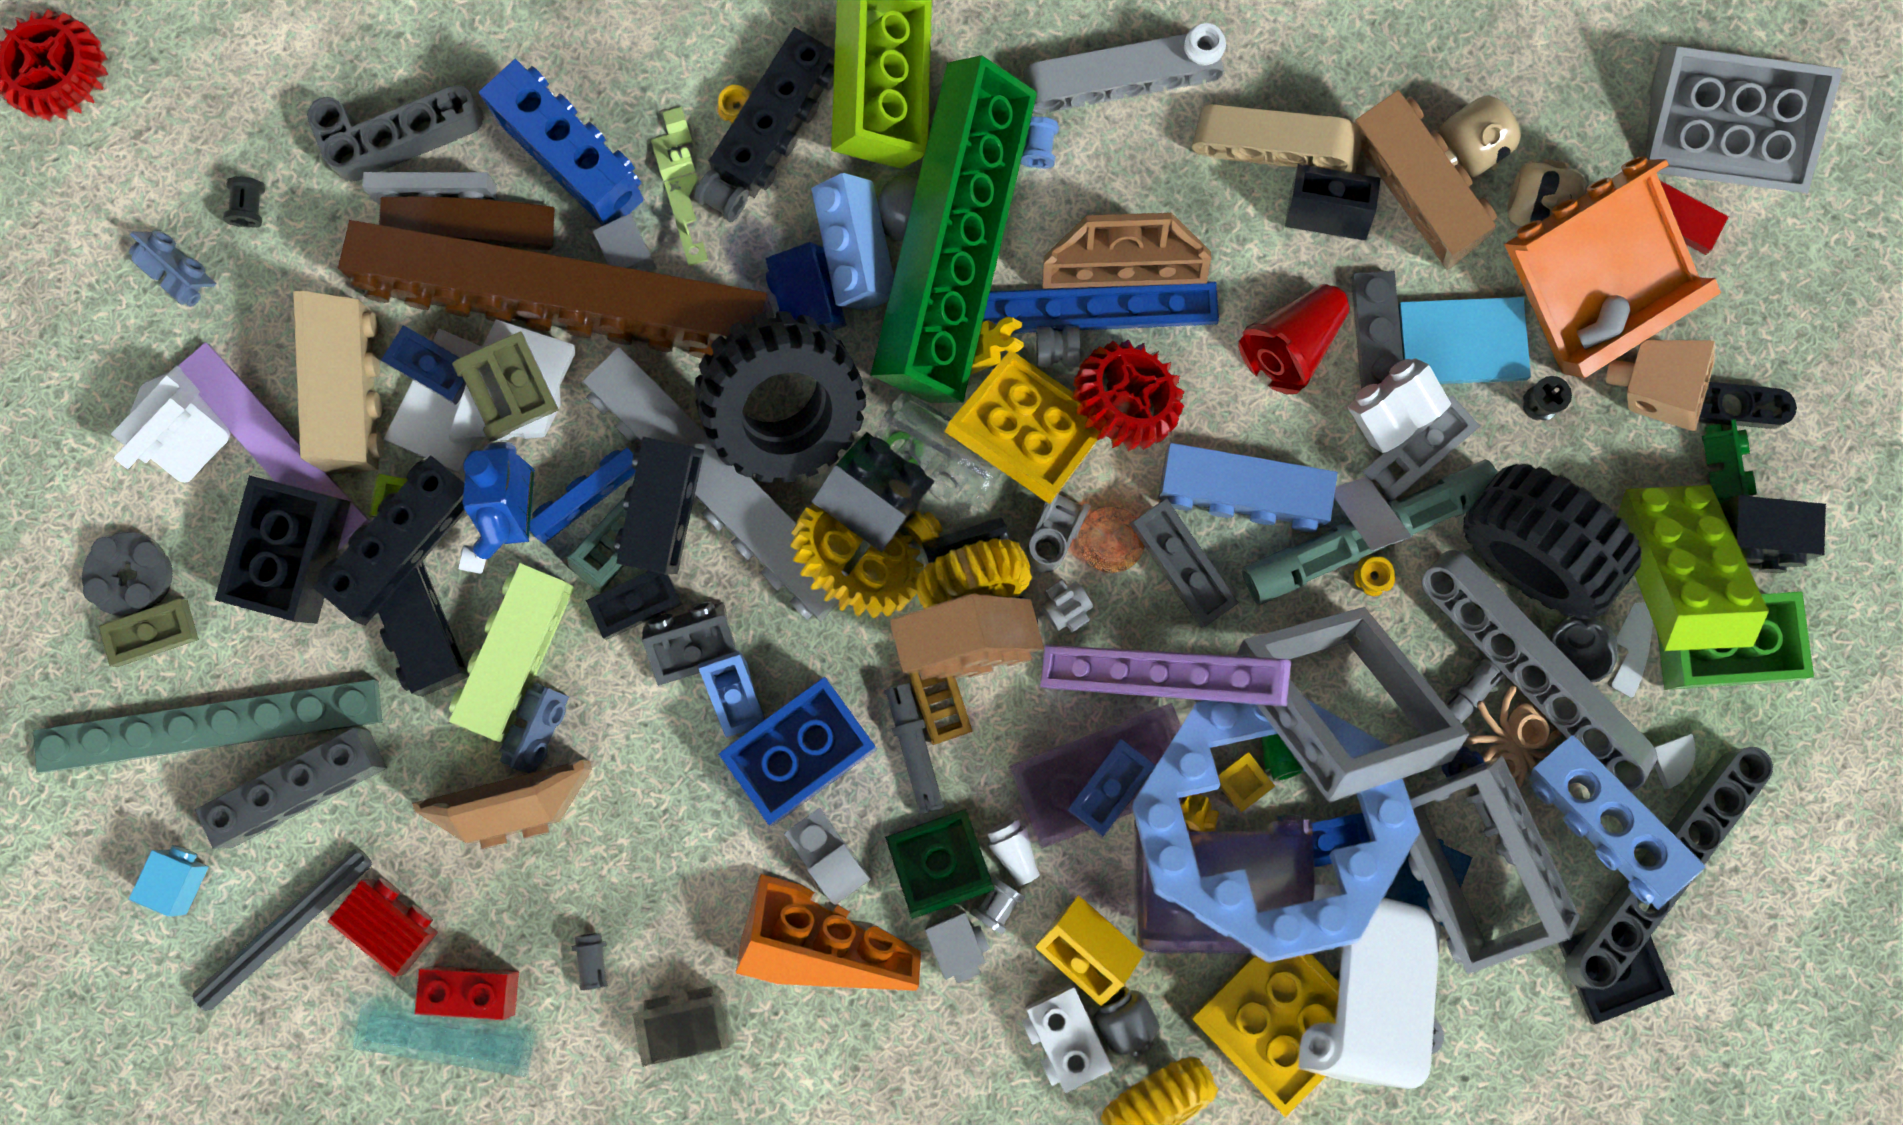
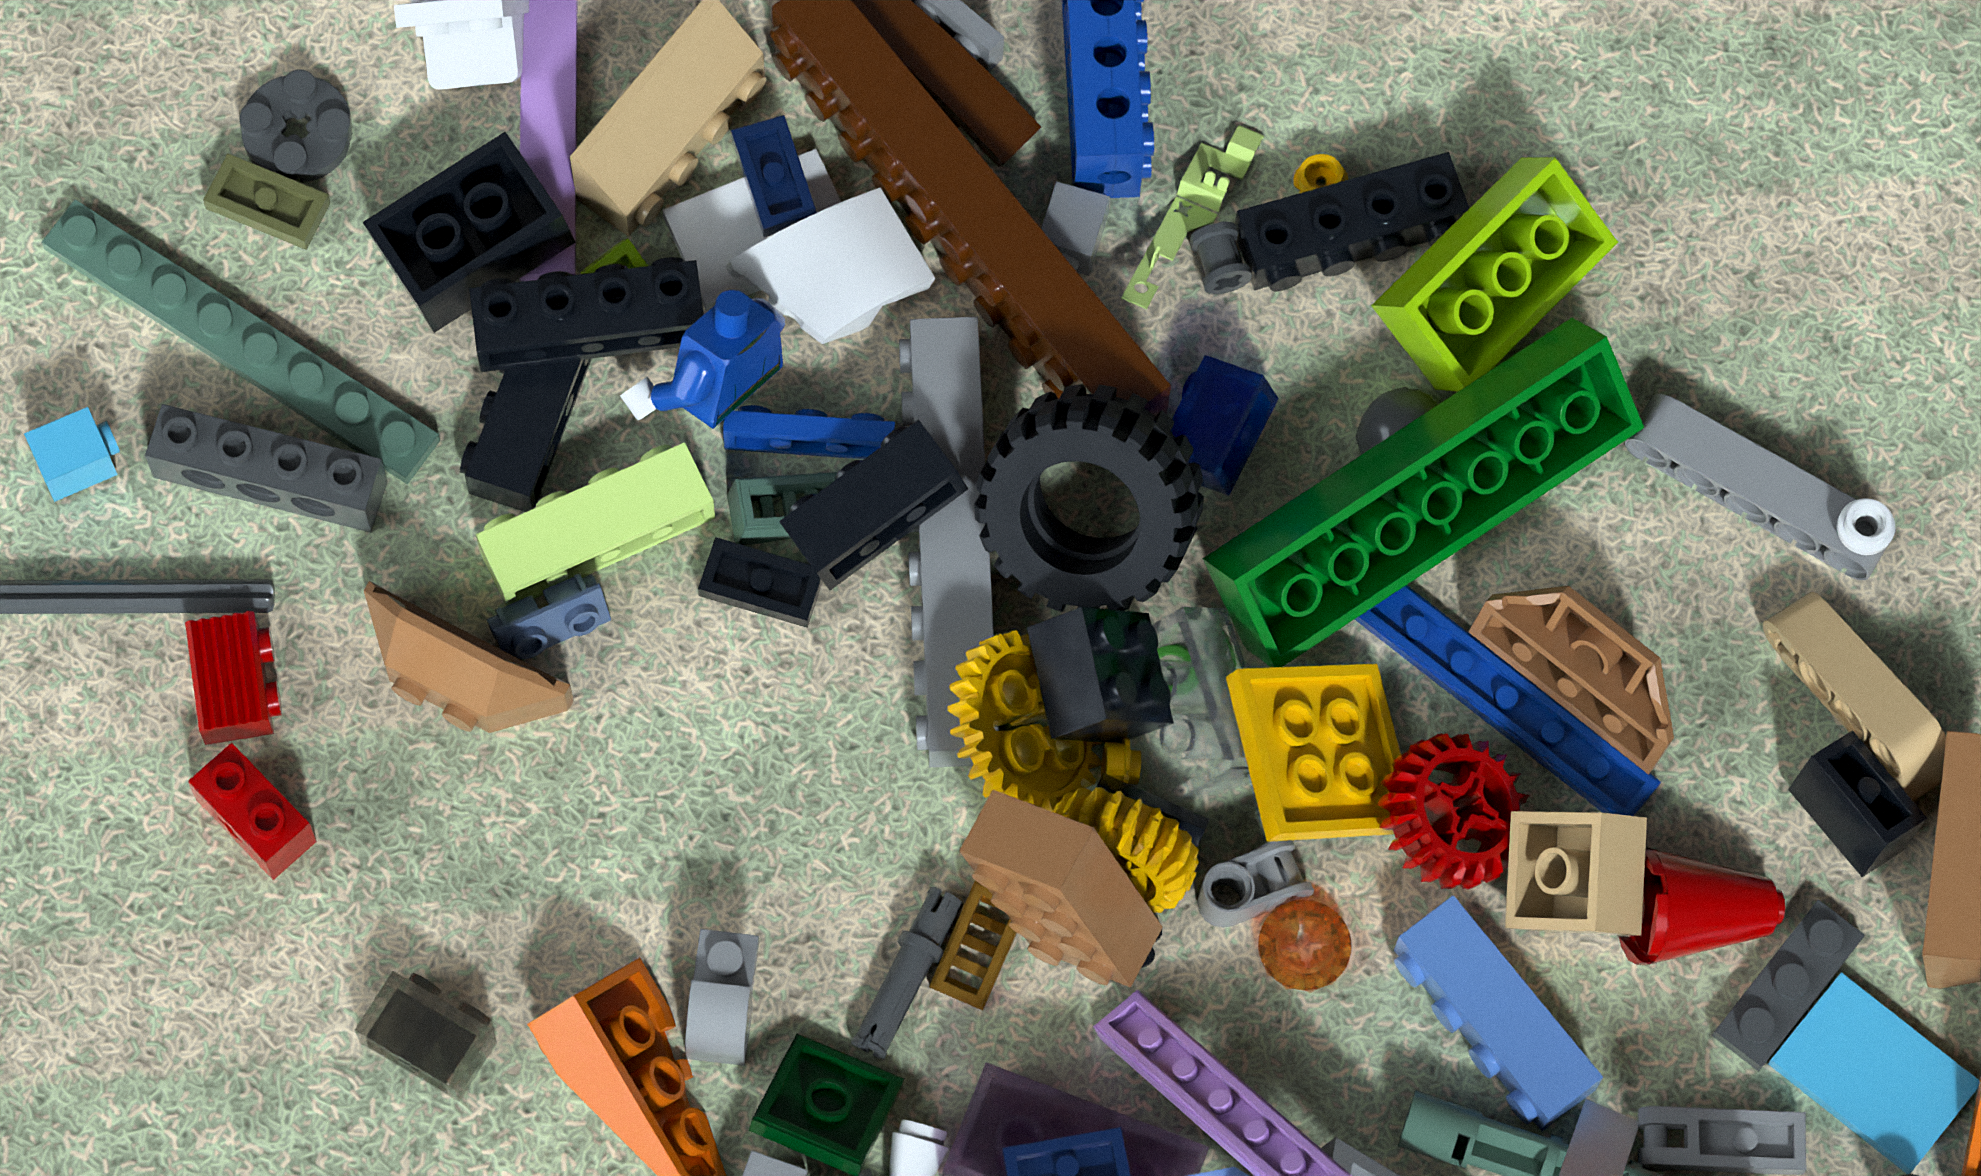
camera: 40 degrees right, 10 degrees down
(444, 1040) = (186, 841): clear light blue tile -> none
(518, 380) = (847, 264): olive plate -> none
(590, 961) = (395, 891): dark grey pin -> none
(686, 640) = (779, 669): dark grey bracket -> none
(732, 693) = (776, 753): medium blue slope -> none
(797, 751) = (788, 867): blue brick -> none
(853, 241) = (1312, 415): light blue brick -> none
(993, 340) = (1362, 636): yellow plate -> none
(1039, 143) = (1602, 483): medium blue bush -> none
(1057, 346) = (1425, 699): dark grey wheel -> none
(1066, 606) = (1194, 967): light grey gear -> none
(1184, 563) = (1357, 1032): dark grey plate -> none
(1227, 372) = (1576, 872): none -> tan brick
(1399, 404) = (1736, 1069): white brick -> none

